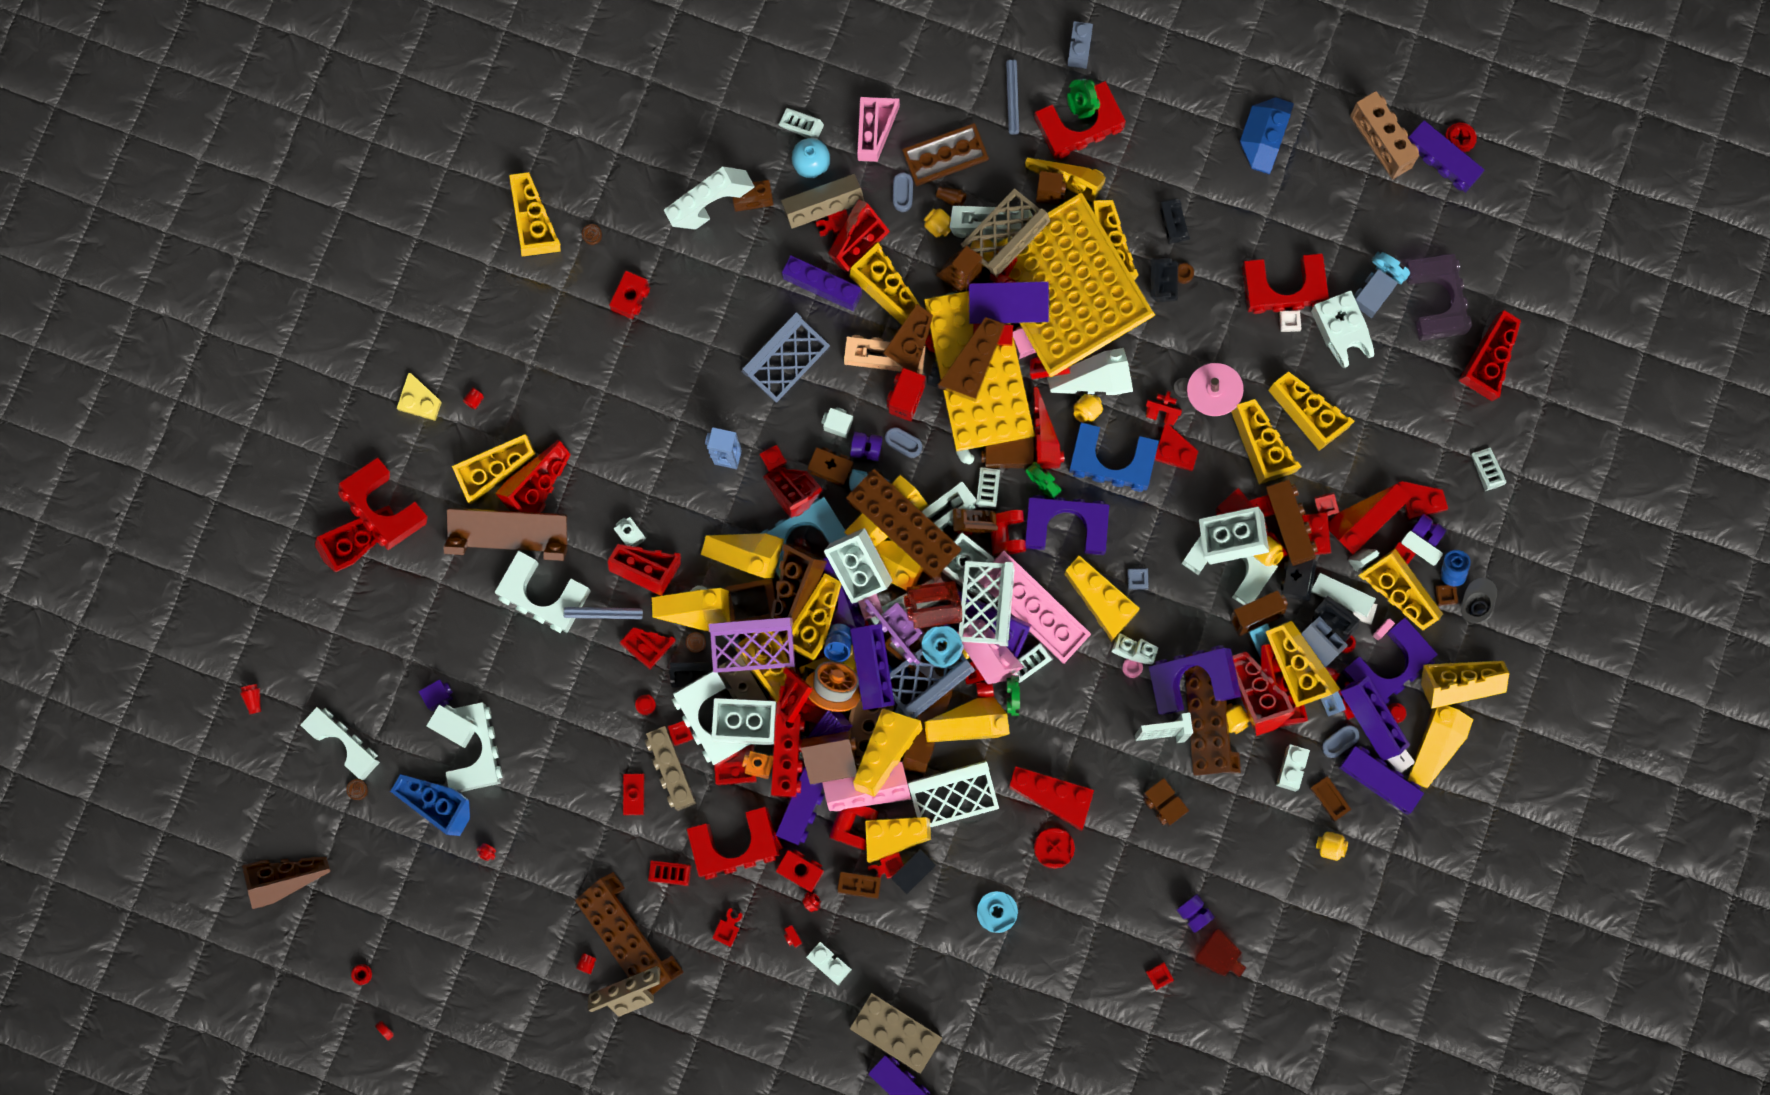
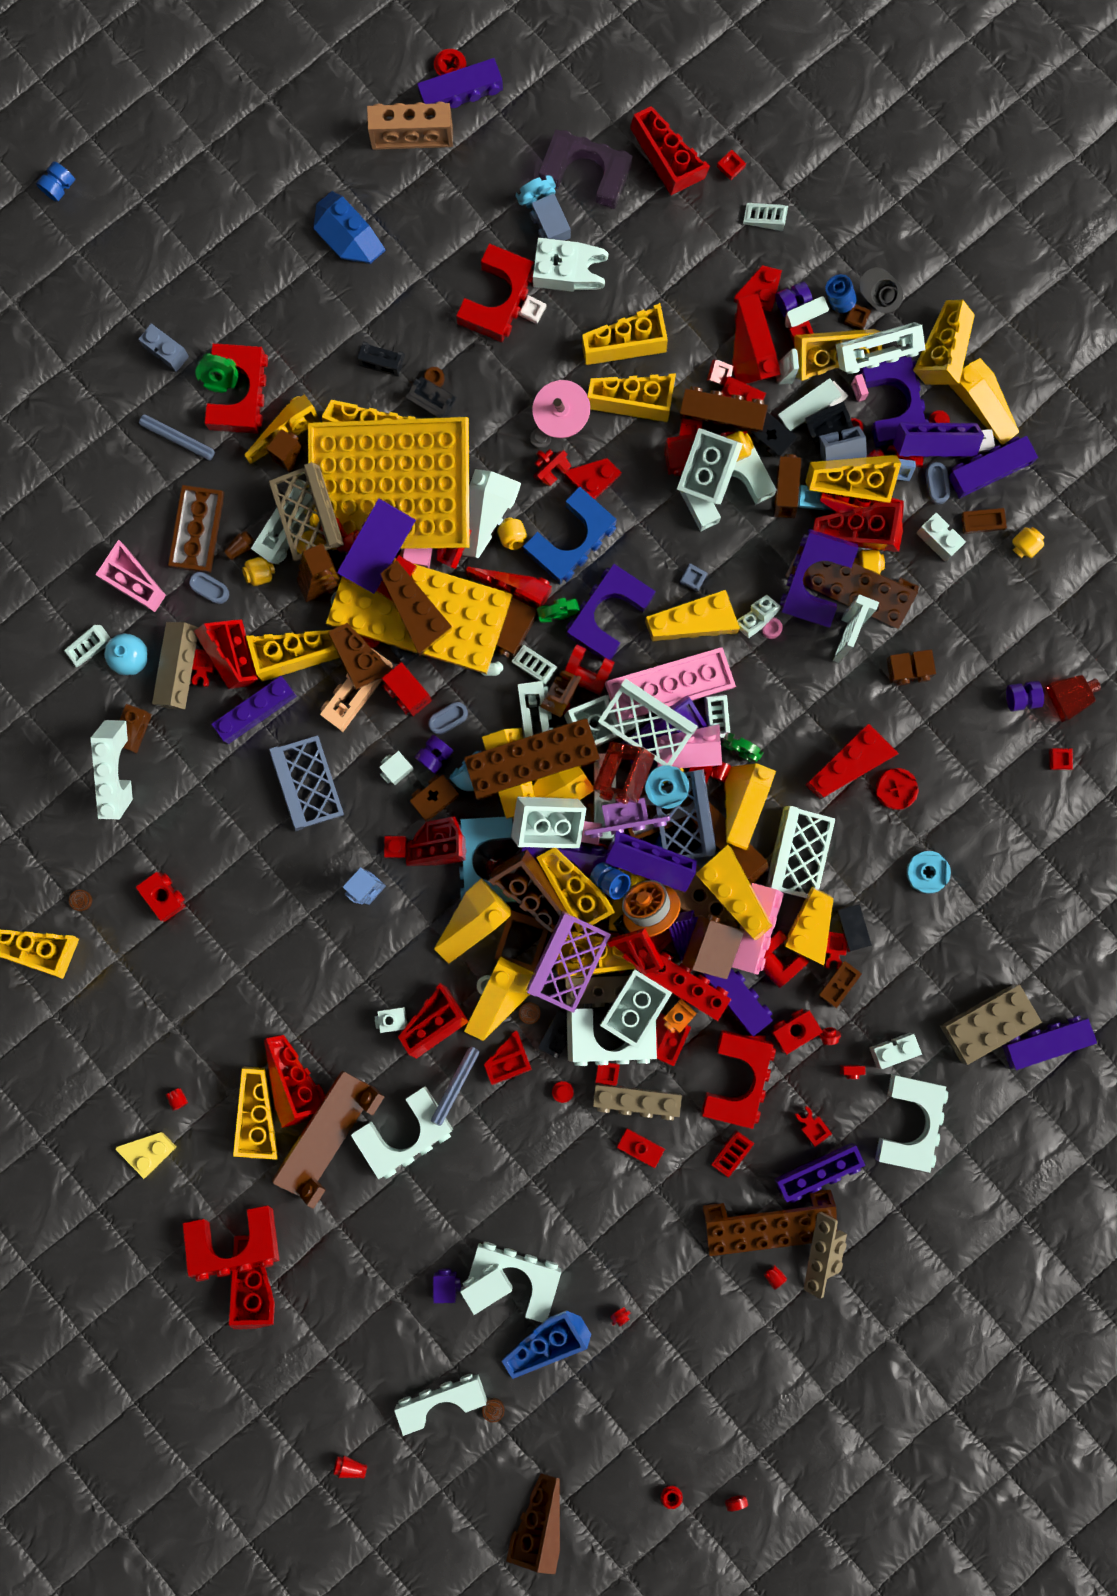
camera: 65 degrees left, 5 degrees up
(692, 952) = (820, 1172): none -> dark purple brick
(753, 1030) = (920, 1152): none -> light aqua arch
(1446, 644) = (910, 346): none -> light aqua brick
(1515, 416) = (731, 164): none -> red plate

